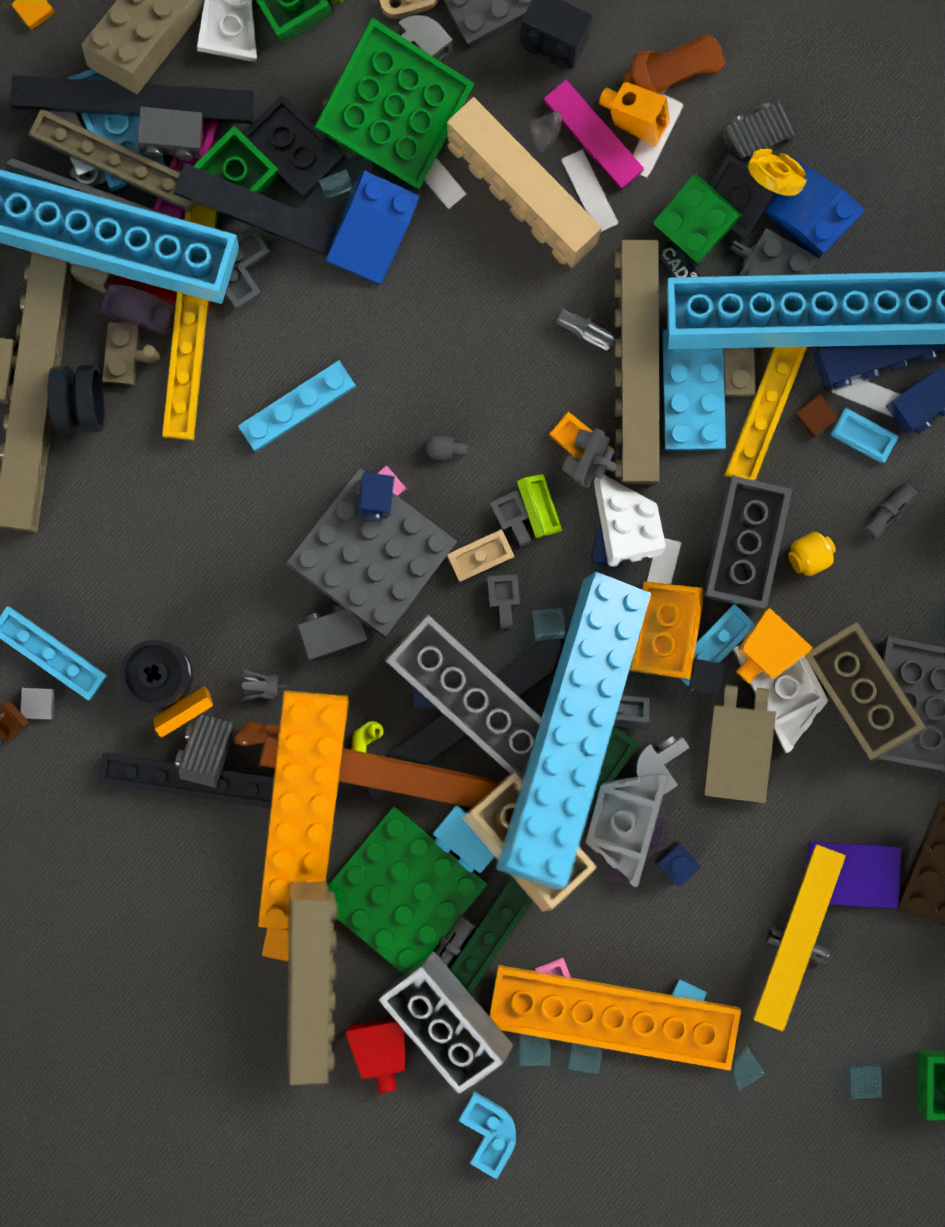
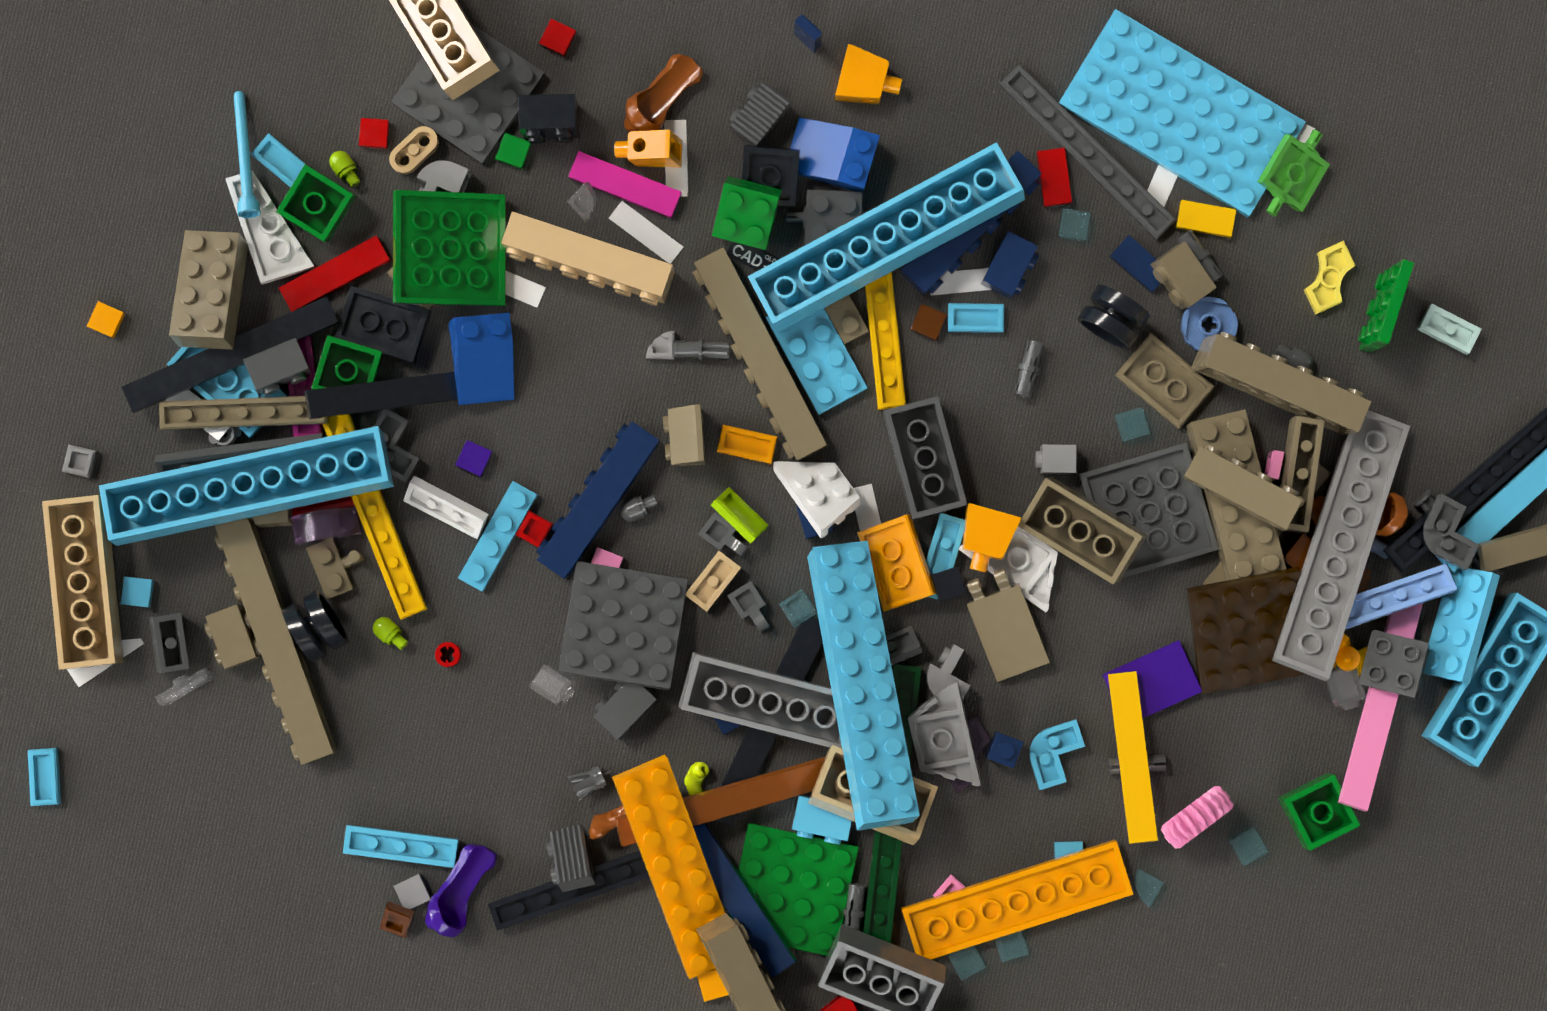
camera: 20 degrees left, 0 degrees up
(64, 734) = (449, 905): none -> dark purple hair
(138, 670) = (482, 821): black wheel -> none
(145, 443) = (389, 632): none -> lime cylinder
(182, 489) = (439, 654): none -> red bush
(182, 711) = (535, 836): light orange tile -> none
(261, 352) = (445, 507): none -> white plate
(274, 76) = (335, 274): none -> red tile
(275, 575) = (552, 685): none -> clear brick
(313, 320) = (474, 458): none -> dark purple tile
(335, 184) = (434, 337): clear light blue tile -> none
(335, 418) = (534, 529): none -> red tile
(347, 883) = (743, 905): none -> dark blue tile
(375, 496) = (602, 579): dark blue brick -> none
(412, 420) = (598, 500): none -> dark blue brick
(503, 48) = (513, 151): none -> green tile
(527, 403) = (686, 436): none -> dark tan slope
(548, 308) = (662, 347): none -> light grey tile
(594, 460) = (765, 454): dark grey hips -> none
(719, 884) = (1047, 747): none -> medium azure plate
(777, 173) = (791, 141): yellow tile -> none
(811, 554) = (982, 438): yellow head -> none
(833, 1029) = (1197, 817): none -> bright pink gear
(846, 77) = (807, 33): none -> dark blue tile
(873, 611) = (1056, 459): none -> light grey brick
(877, 150) = (864, 77): none -> light orange torso

